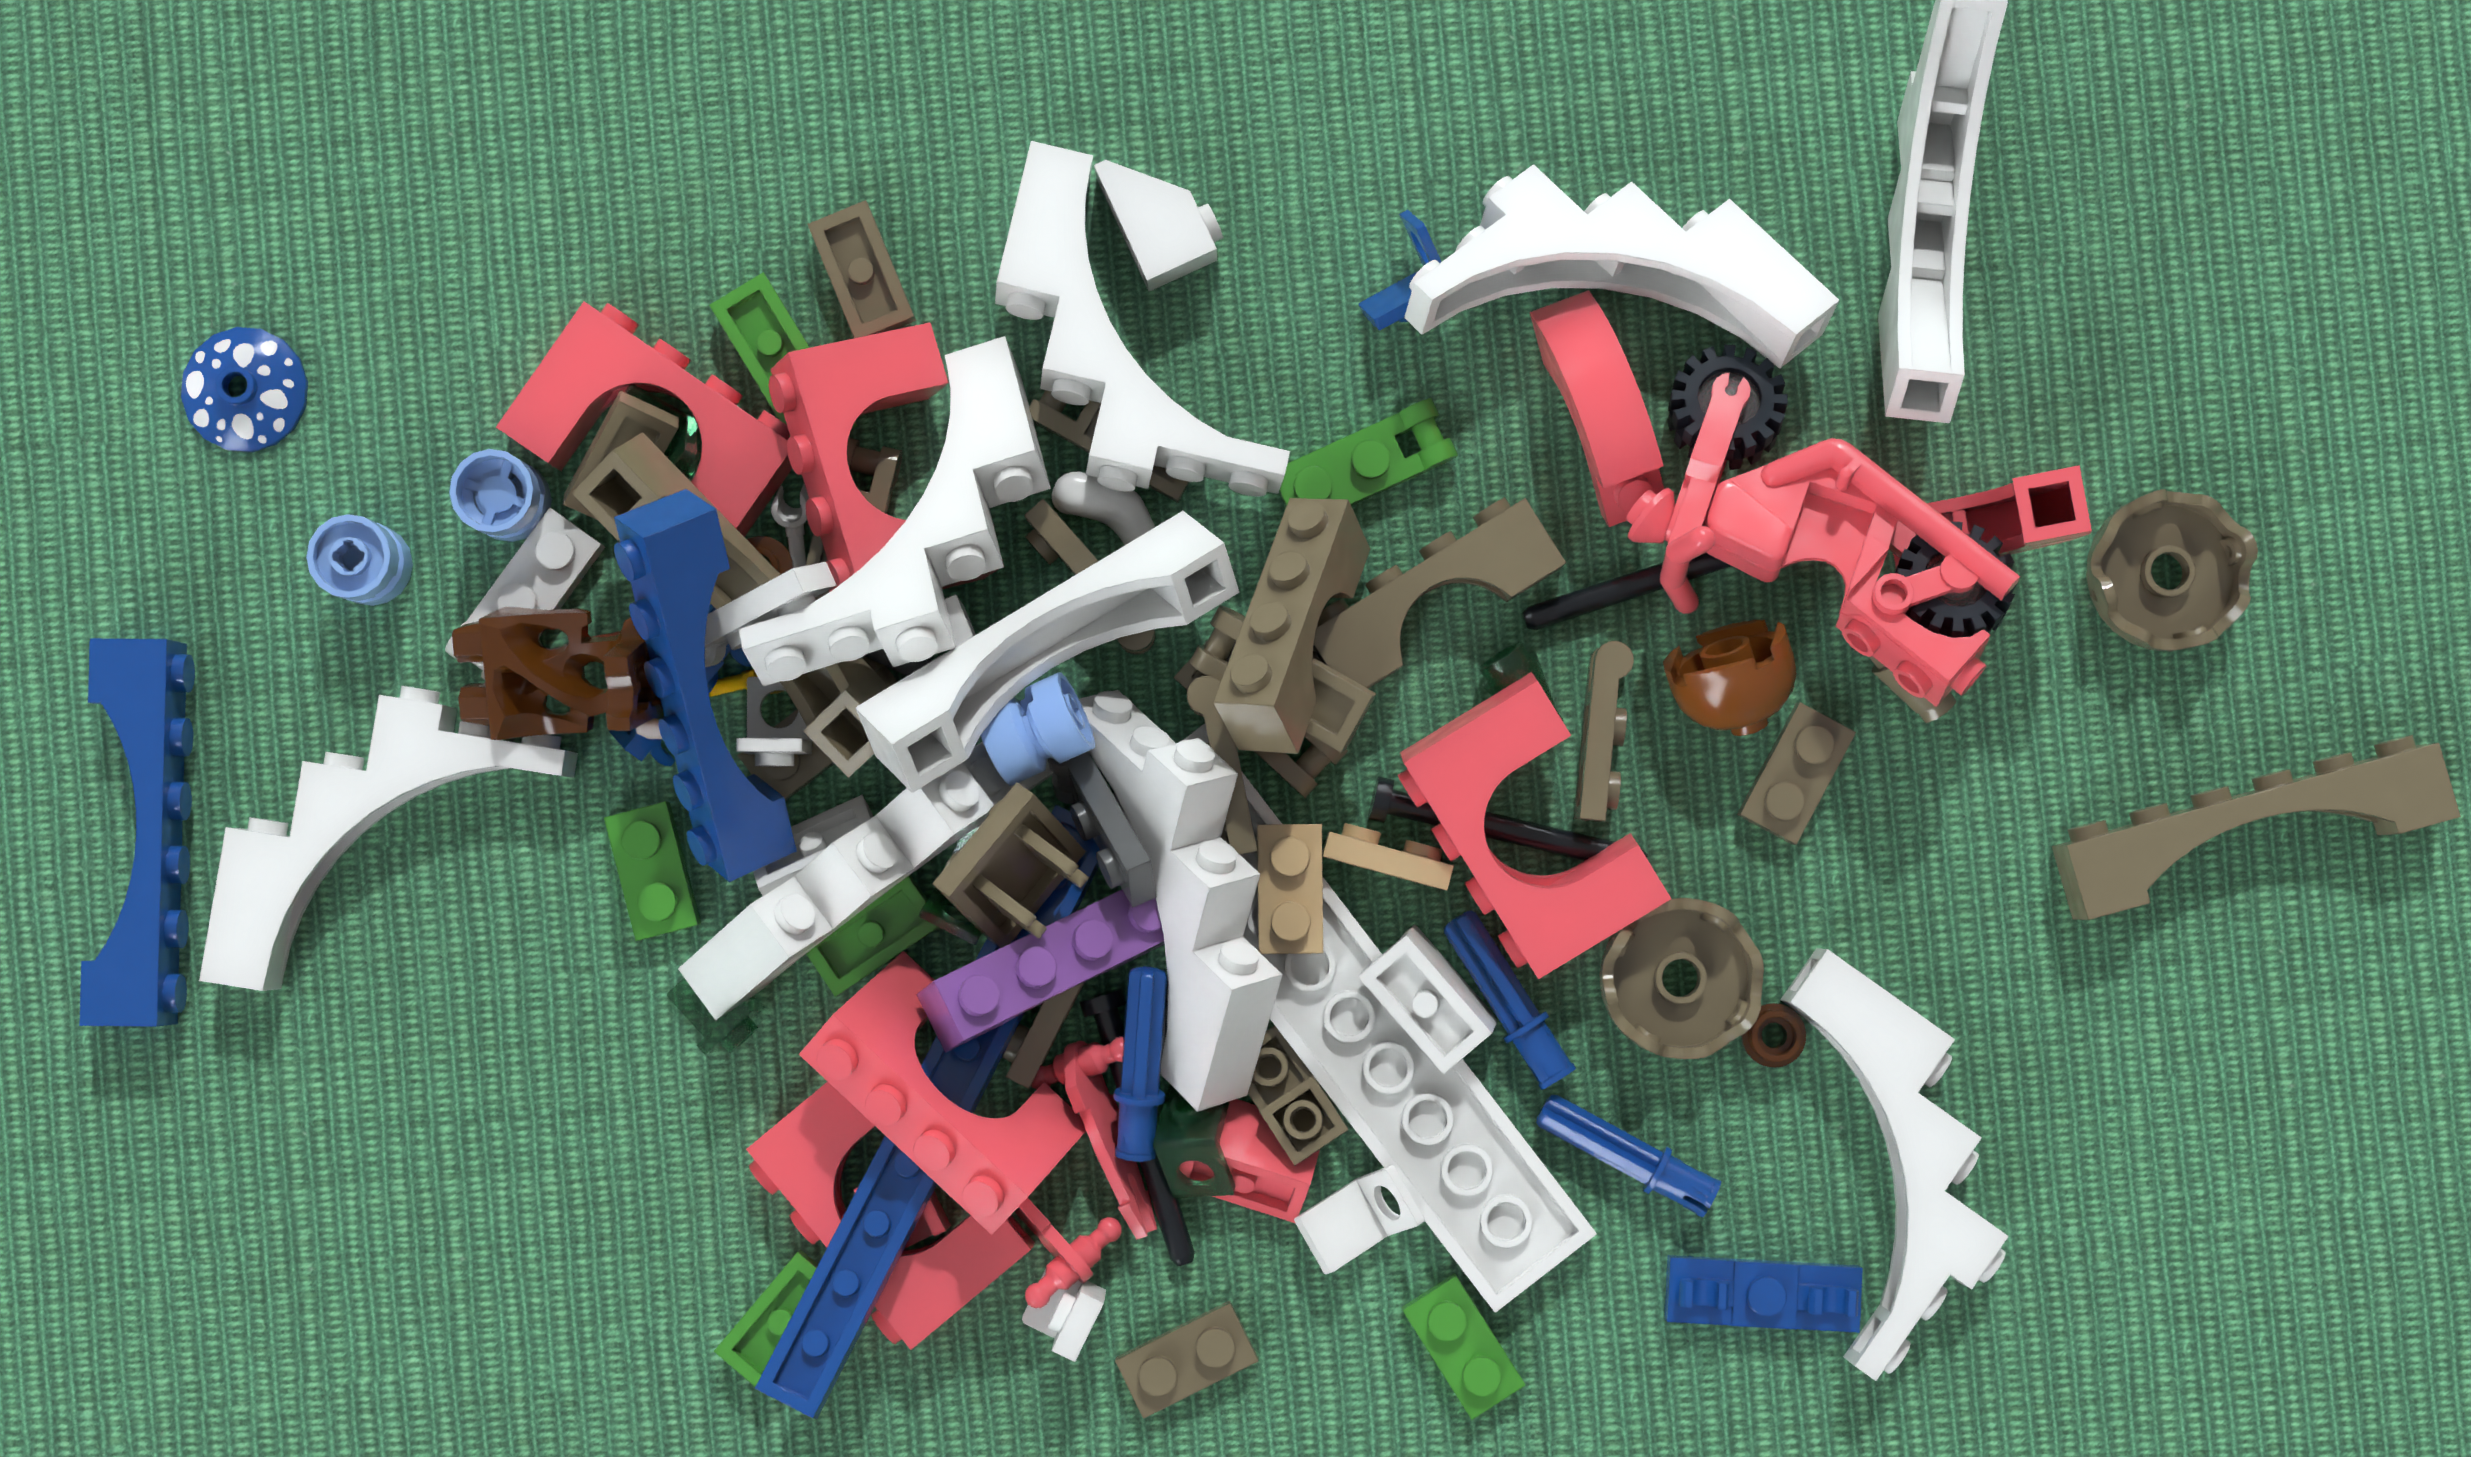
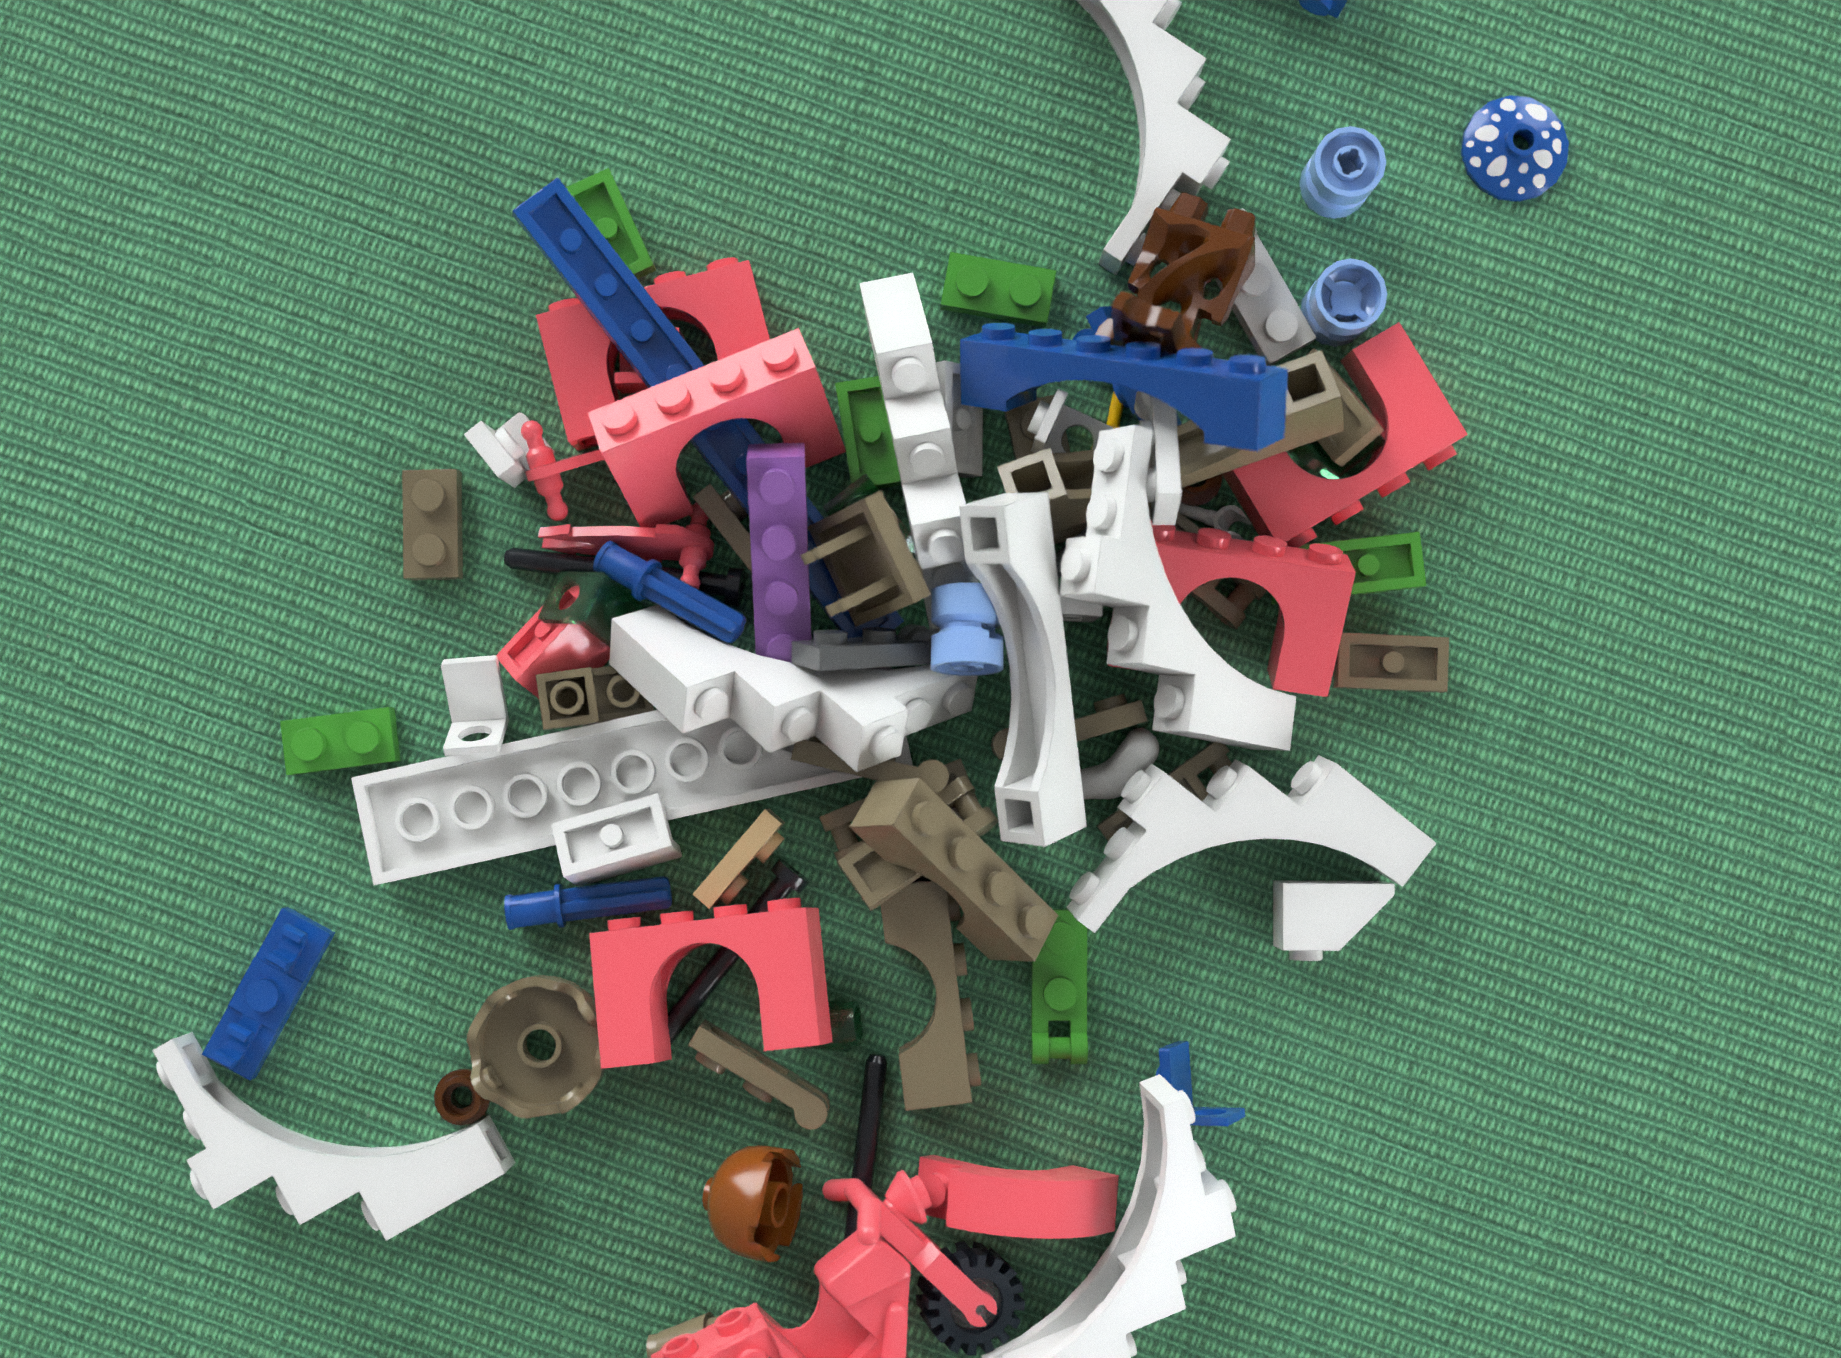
camera: 110 degrees right, 0 degrees up
(727, 1031) = (847, 288): clear green bracket -> none
(1290, 889) = (751, 772): tan plate -> none
(1630, 1155) = (403, 954): blue axle -> none
(1796, 773) = (657, 1212): dark tan plate -> none

